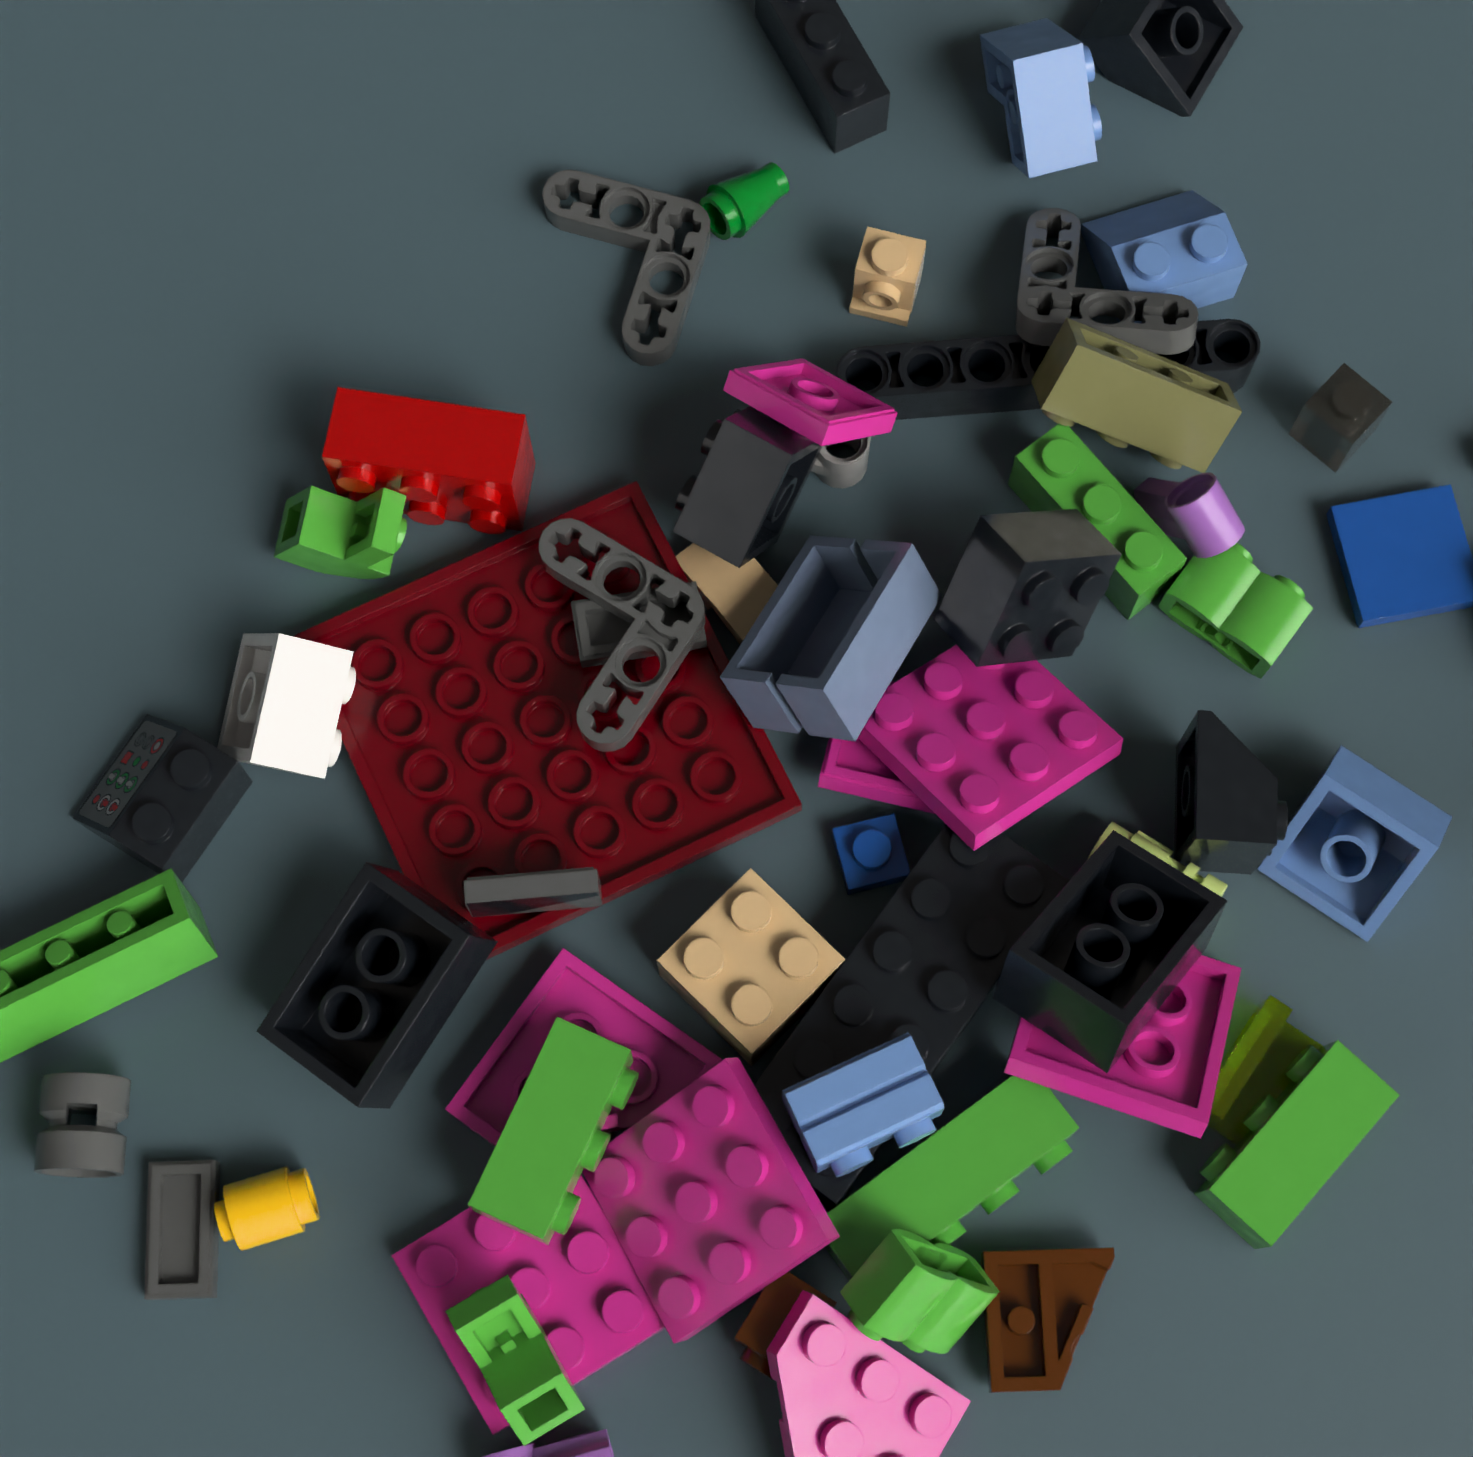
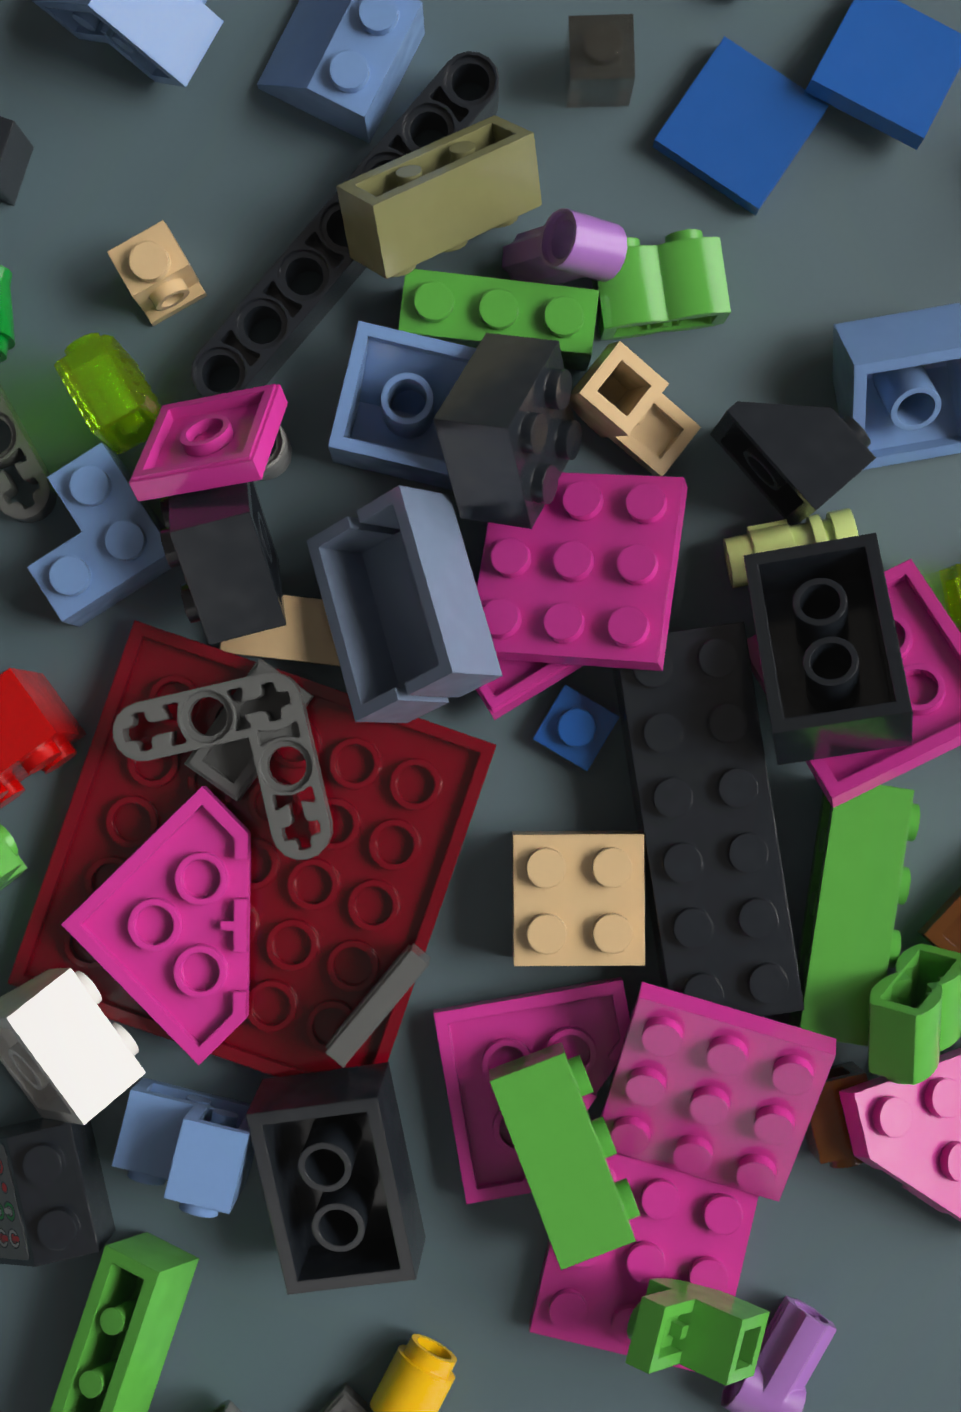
camera: 45 degrees left, 15 degrees up
(297, 863) = (189, 1140): none -> medium blue brick
(453, 705) = (179, 924): none -> dark pink plate
(665, 422) = (117, 543): none -> medium blue brick
(776, 311) = (109, 391): none -> clear neon green brick
(863, 1105) = (767, 937): medium blue brick -> none
(944, 497) = (390, 403): none -> medium blue slope
(1061, 299) = (310, 167): dark grey beam -> none
(1129, 657) = (625, 402): none -> tan brick

